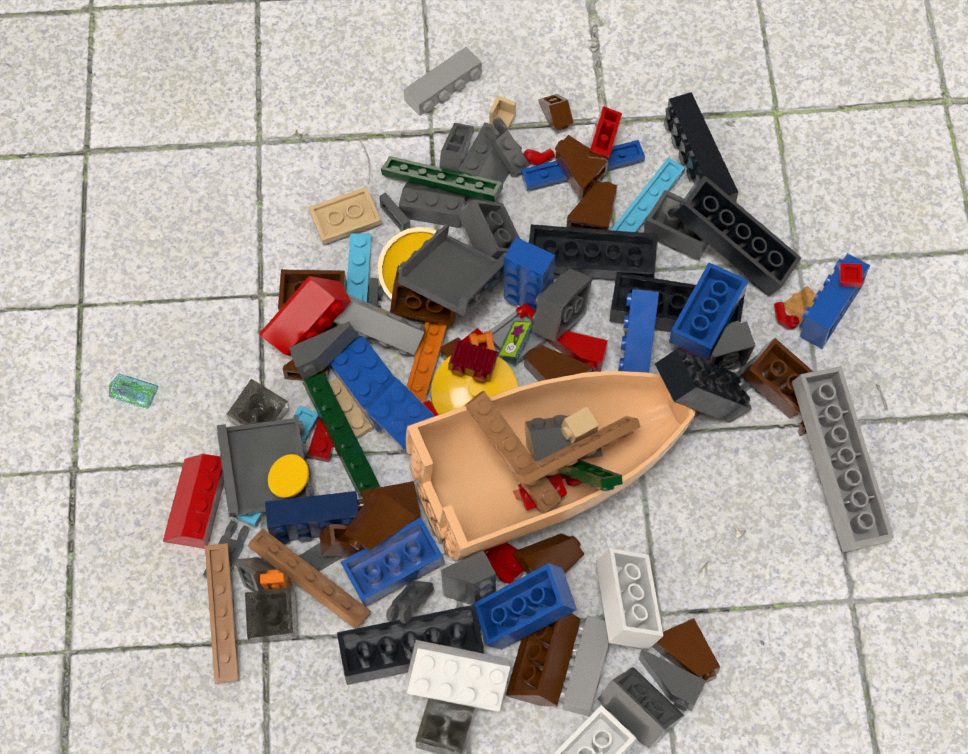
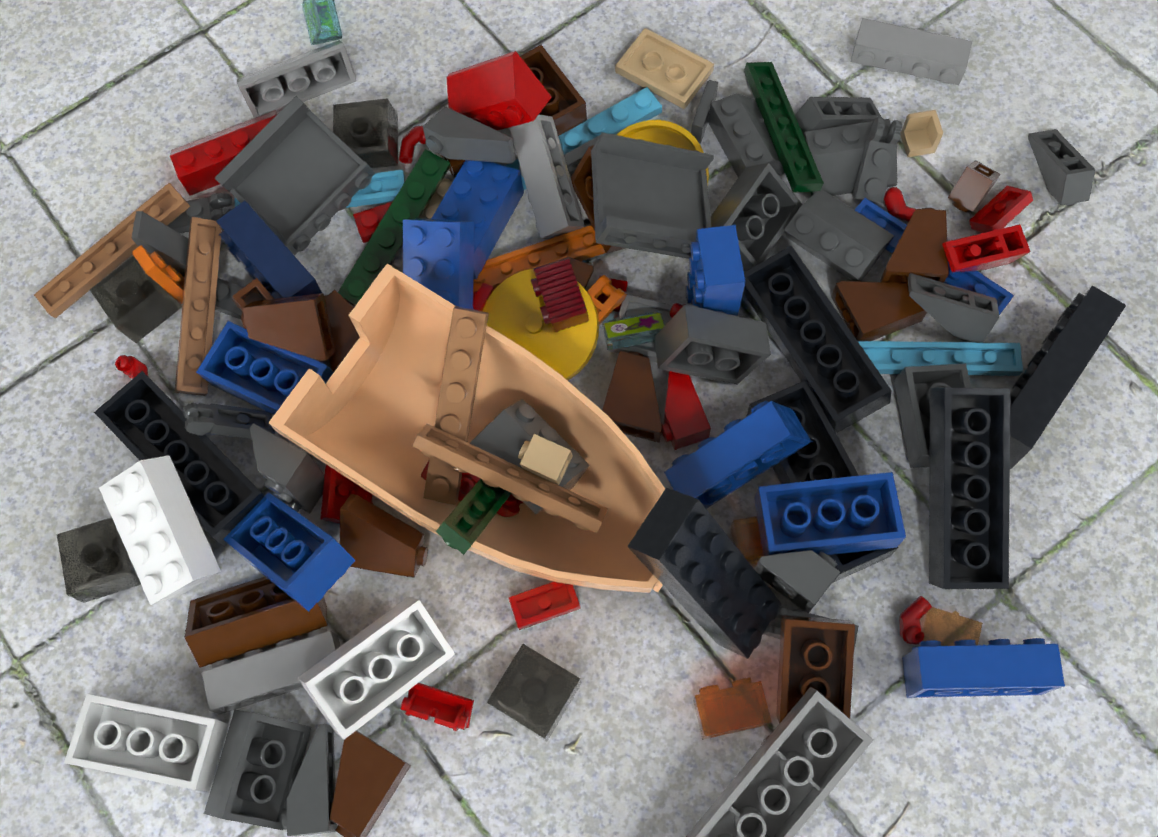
camera: 60 degrees right, 5 degrees up
(175, 428) = (301, 76): none -> light grey slope
(277, 387) = (409, 142): none -> red arm
(288, 476) = (296, 206): yellow piece -> none
(321, 647) = (130, 366): none -> red arm
(537, 198) = (838, 235): none -> dark grey slope
(579, 61) = (1063, 168): none -> dark grey slope
(581, 109) = (1001, 209): none -> red plate
(629, 171) = (956, 309): none -> dark grey slope
(647, 495) = (543, 604): none -> red plate
(672, 583) = (444, 706): none -> red hinge
(697, 529) = (534, 692): none -> clear smoke brick
(773, 436) = (731, 708): none -> clear orange brick
(850, 275) = (1025, 668): red plate -> none

